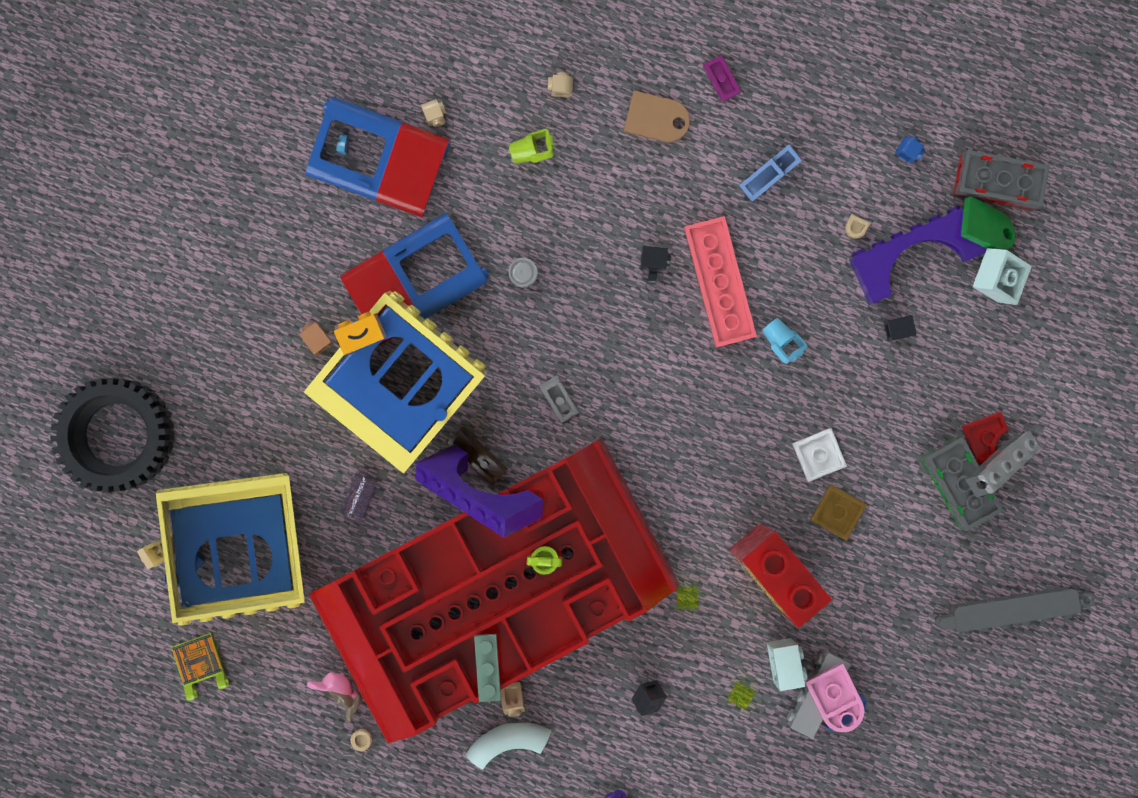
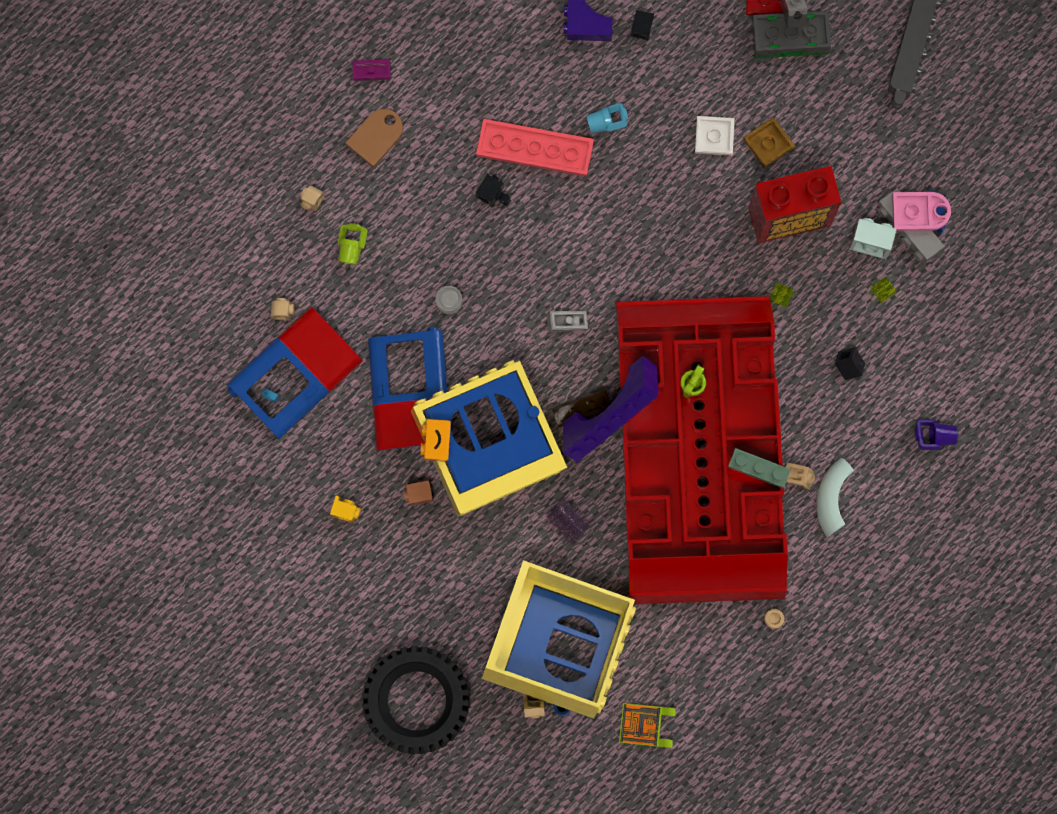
camera: 60 degrees left, 10 degrees down
(265, 274) = (345, 510): none -> yellow brick
(340, 690) = (727, 614): hair -> none
(771, 172) = (466, 66): medium blue slope -> none
(856, 227) = (544, 21): tan tile -> none

